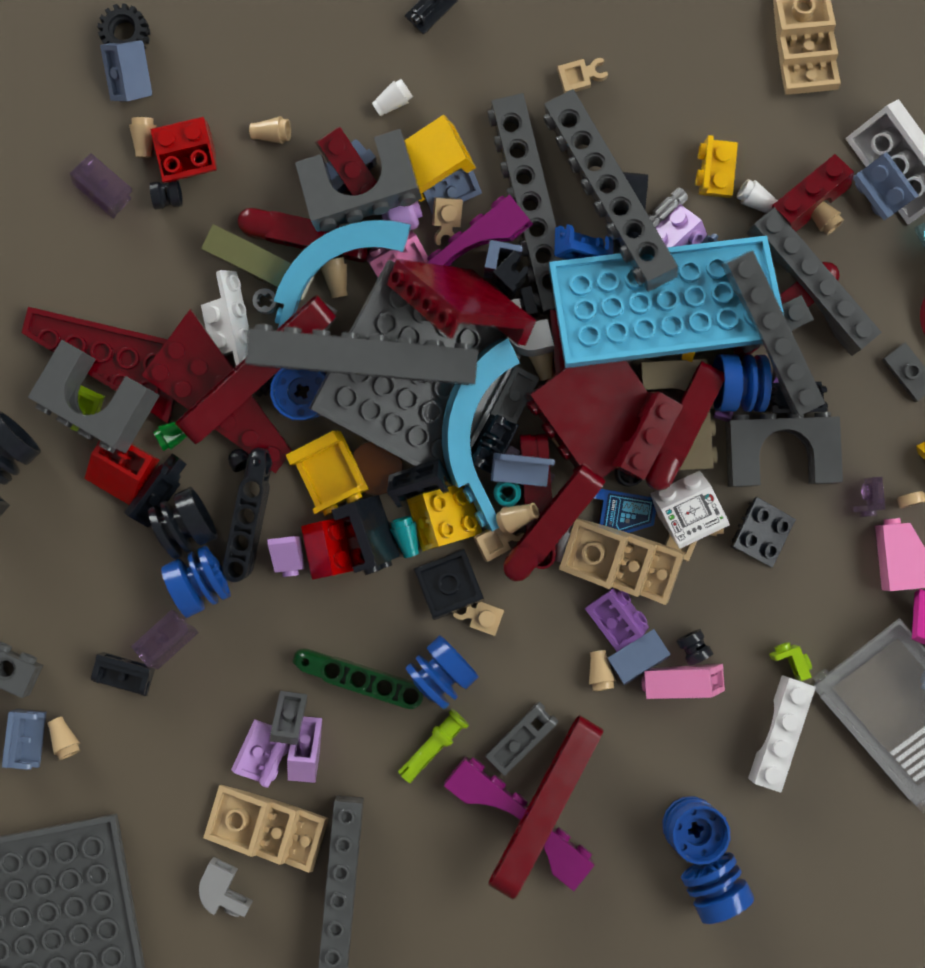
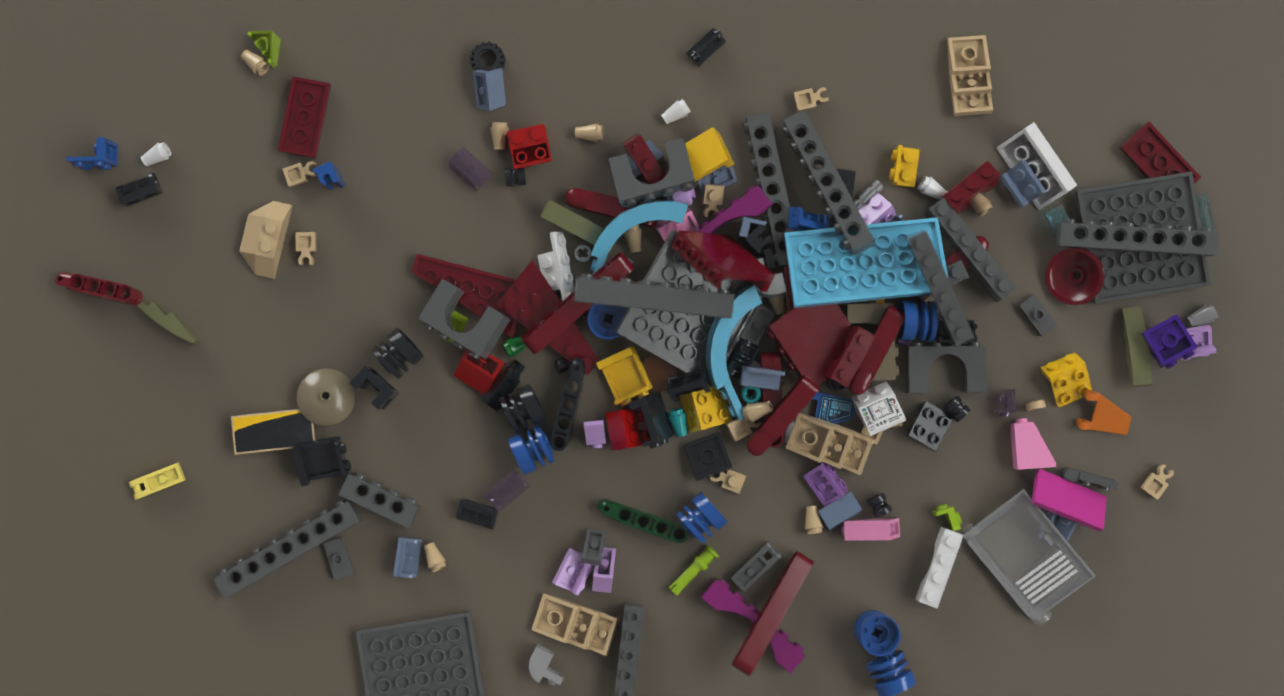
camera: 10 degrees right, 0 degrees up
(799, 505) = (955, 406): none -> black wheel

